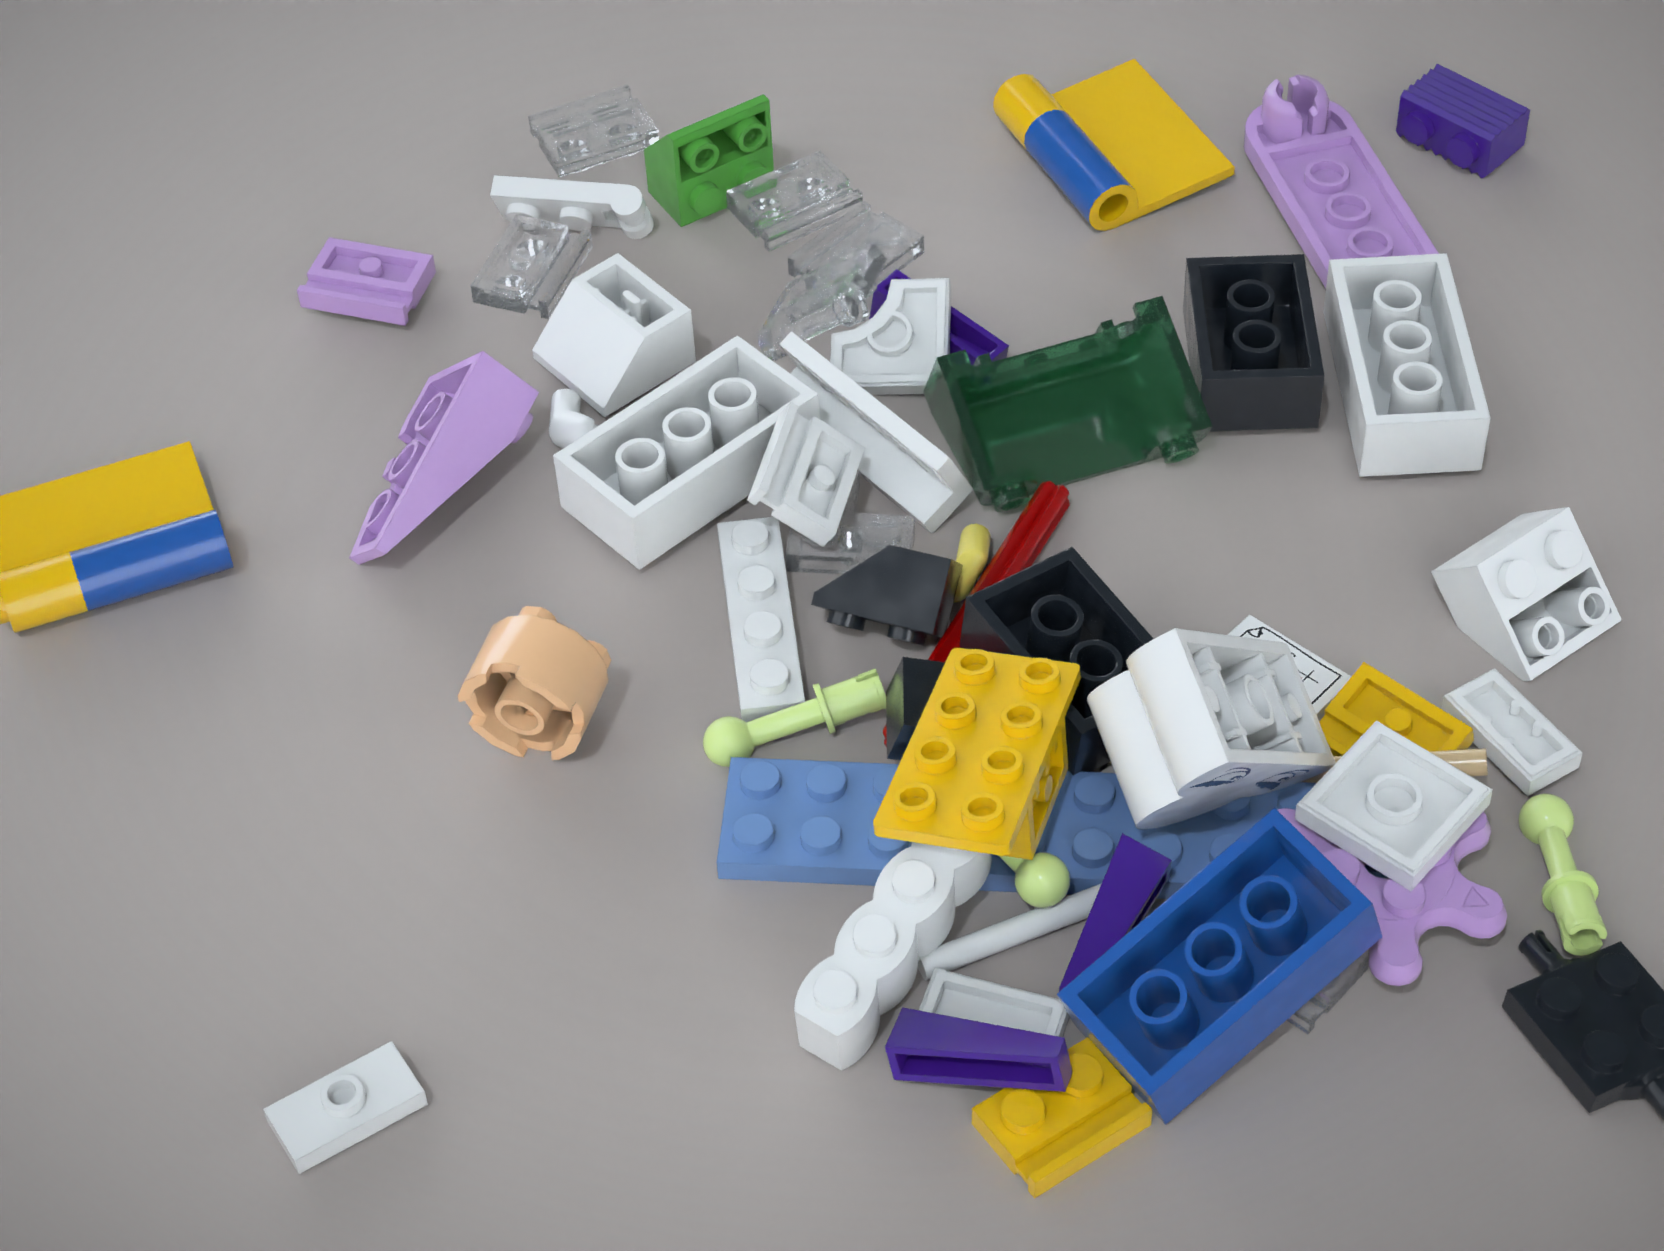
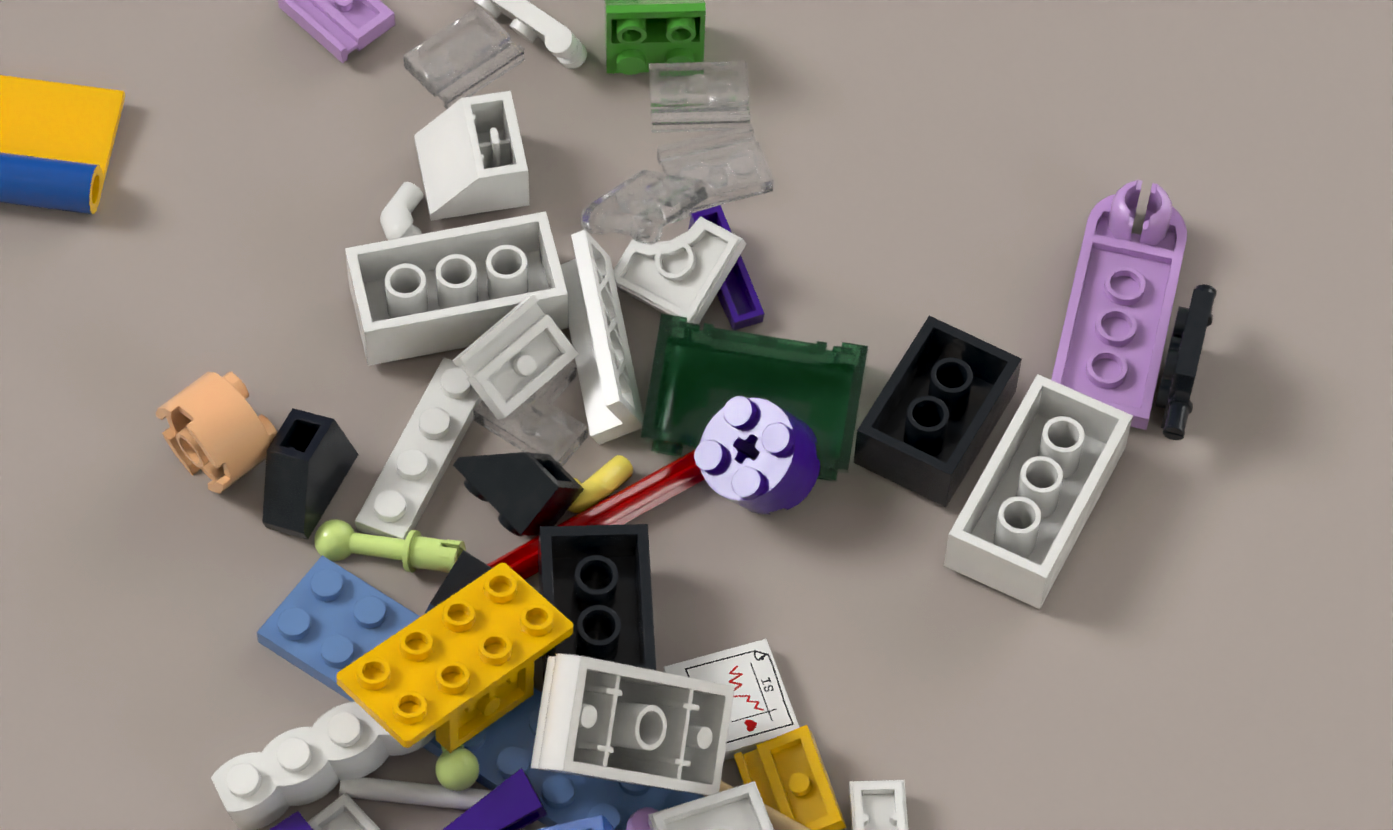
camera: 25 degrees right, 10 degrees up
(450, 435) = (315, 181): lavender wedge -> none
(656, 684) = (304, 472): none -> black slope
(1096, 426) = (758, 455): none -> brick
(1112, 142) = (984, 165): yellow door -> none
(1448, 197) = (1183, 361): none -> black plate
(1461, 120) = (1274, 289): dark purple brick -> none
(1528, 592) = (981, 733): white slope -> none

